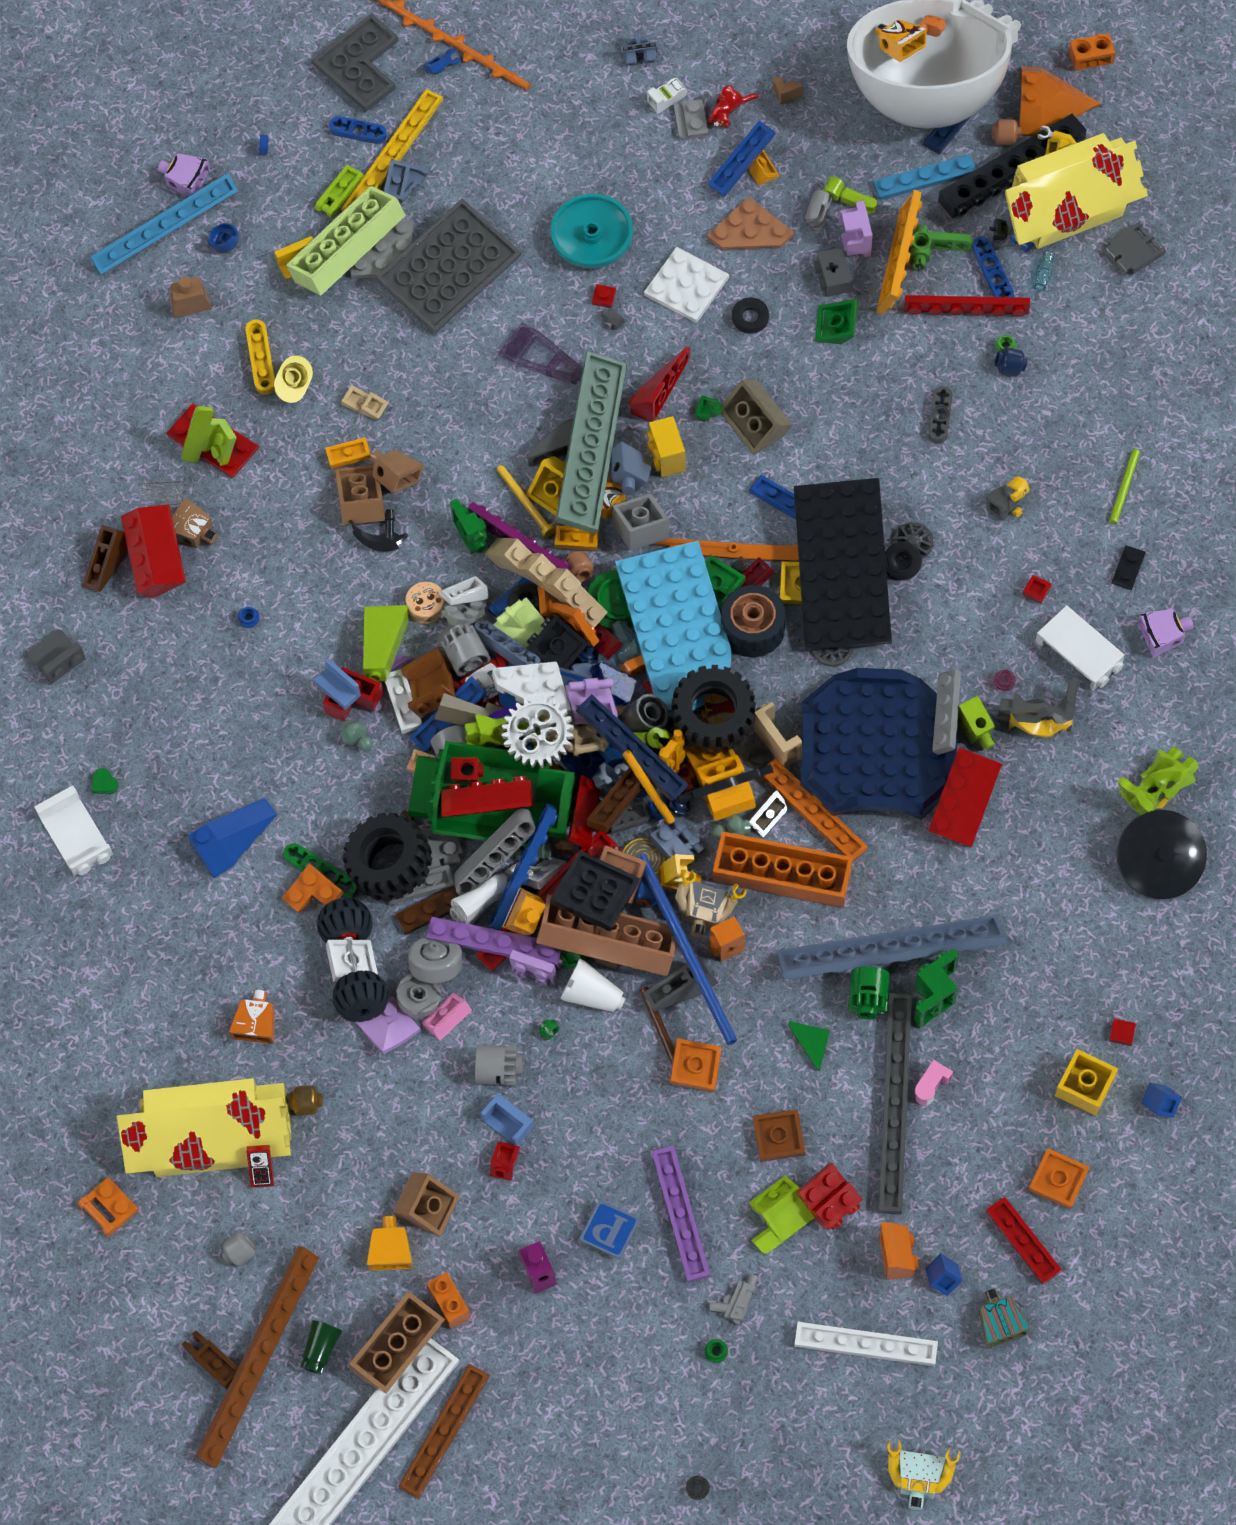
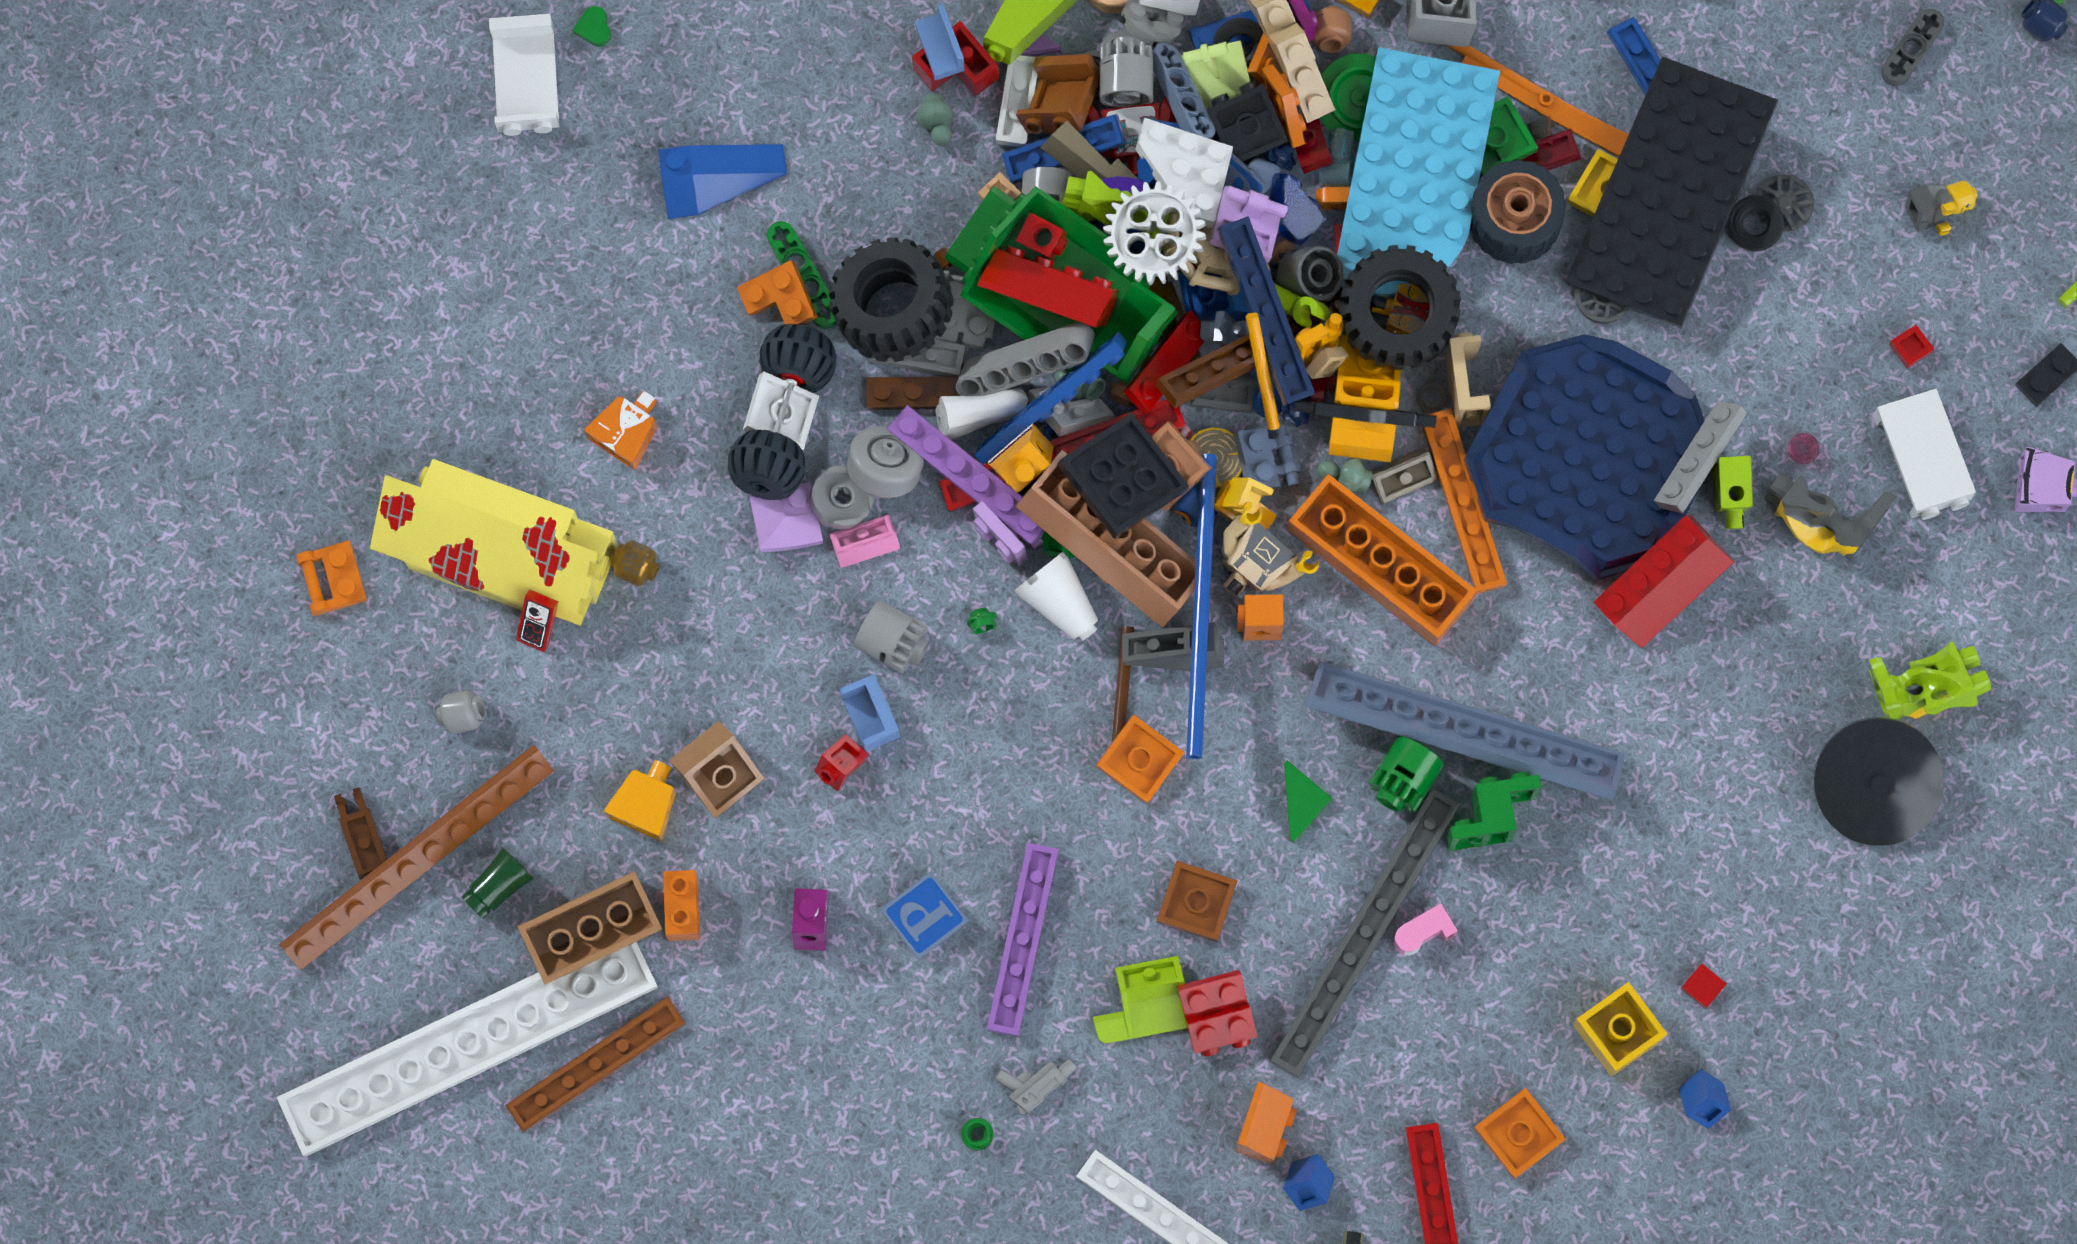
camera: 25 degrees right, 10 degrees up
(684, 763) = (1326, 362): none -> tan plate

